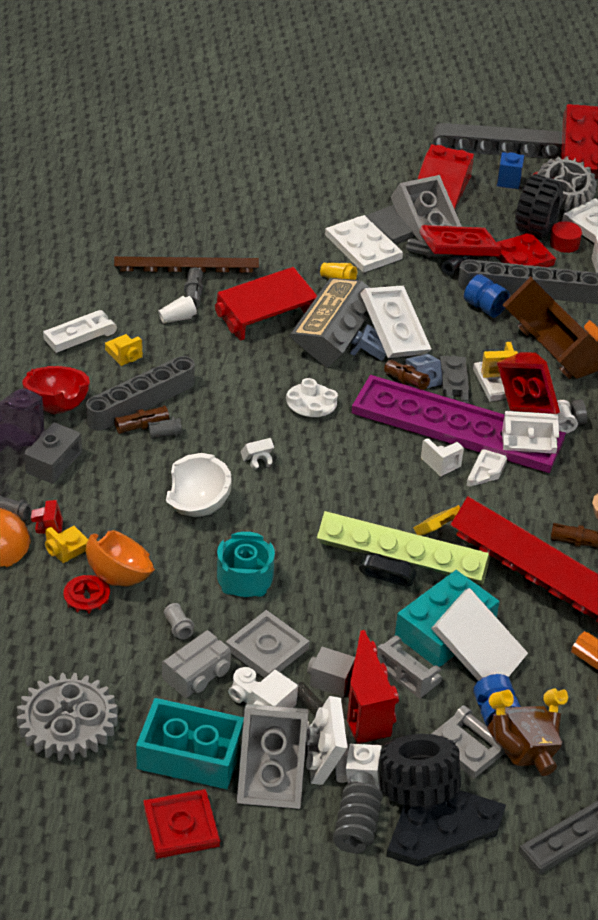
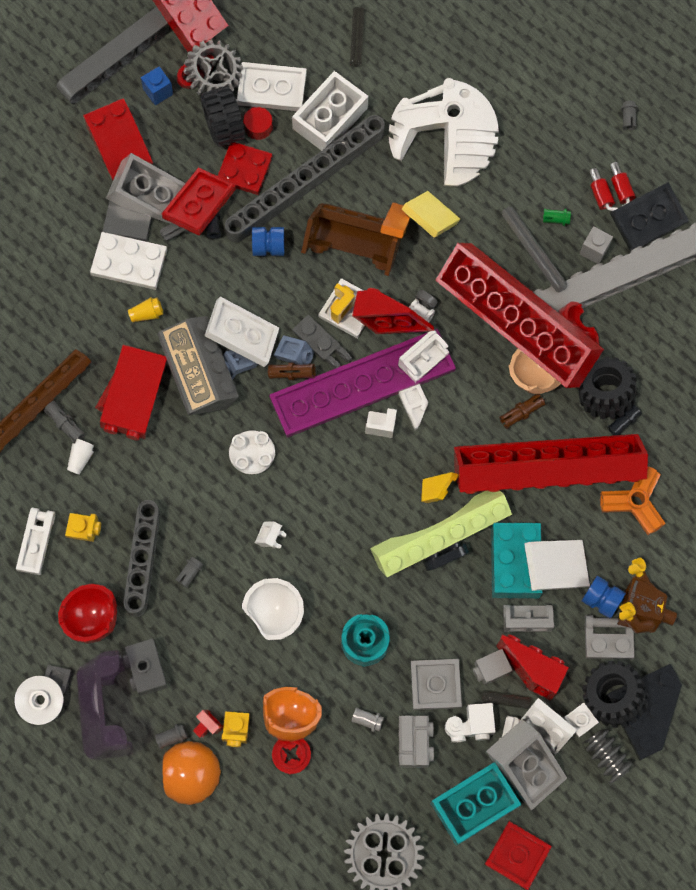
camera: 45 degrees left, 30 degrees up
(140, 419) = (165, 579): reddish brown pin -> none

